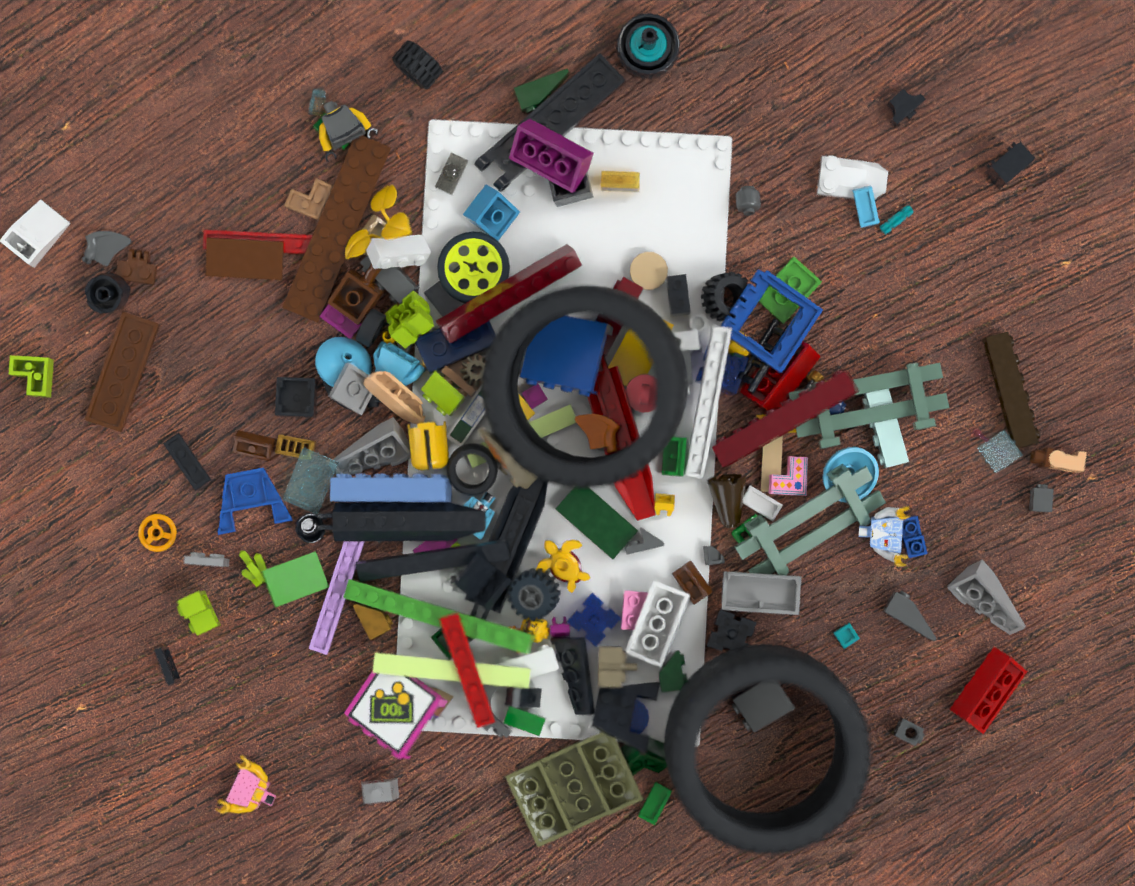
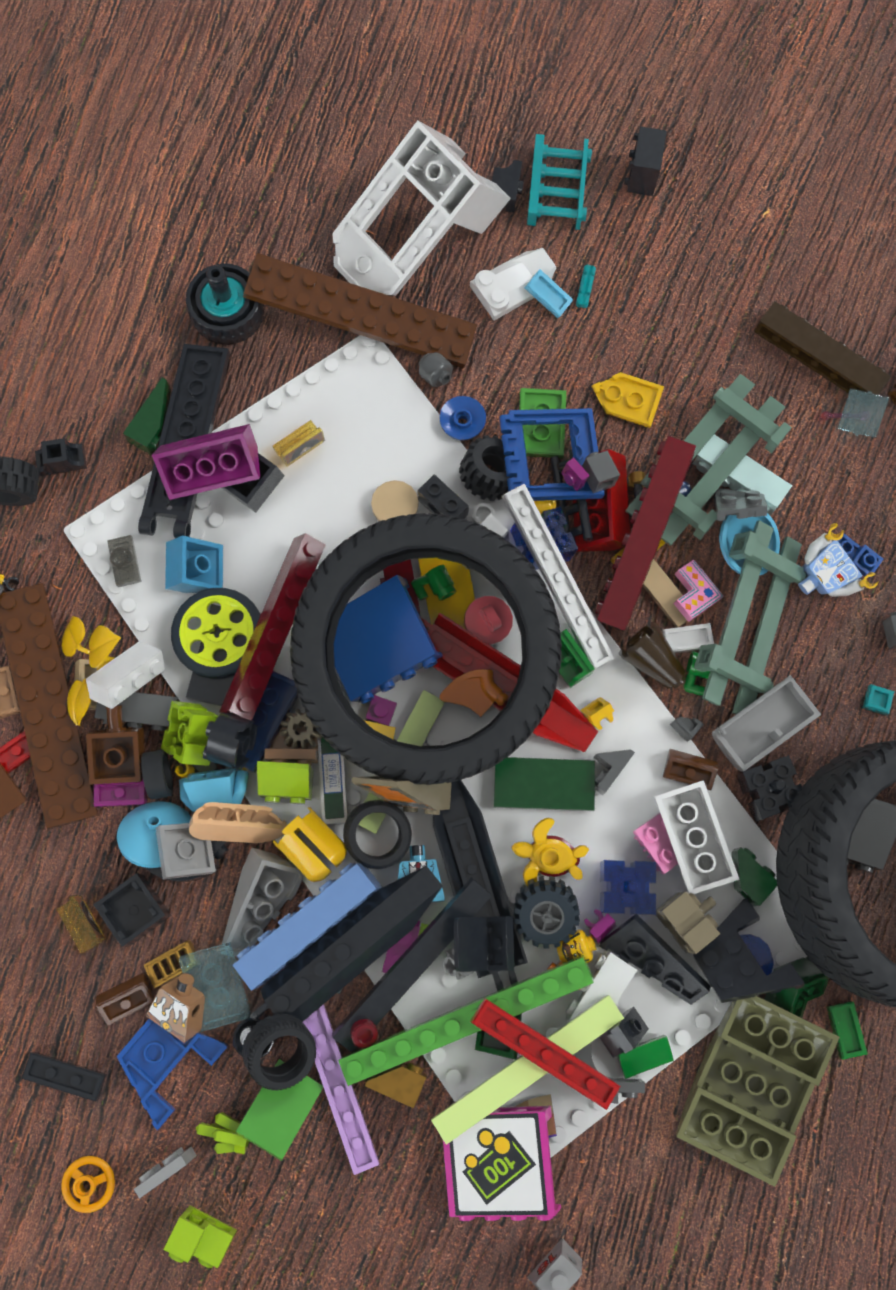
camera: 45 degrees left, 10 degrees down
(260, 381) = (81, 924): none -> clear yellow panel
(281, 476) = (178, 1007): none -> medium nougat torso
(319, 564) = (291, 1071): none -> black tyre
(375, 576) = (364, 1033): none -> dark red tile
(428, 345) = (230, 740): none -> black brick
(462, 71) = (60, 457): none -> black brick
(633, 346) = (439, 582): none -> green piece
(731, 122) = (359, 310): none -> reddish brown plate
(745, 240) = (462, 408): none -> blue dish
(770, 346) = (574, 474): none -> magenta plate
(789, 356) = (601, 471): none -> dark grey brick
(849, 82) = (441, 175): none -> white bracket
(859, 319) = (629, 398): none -> yellow tile
(859, 446) = (739, 503): none -> dark grey wing
(934, 112) = (541, 170): none -> teal fence

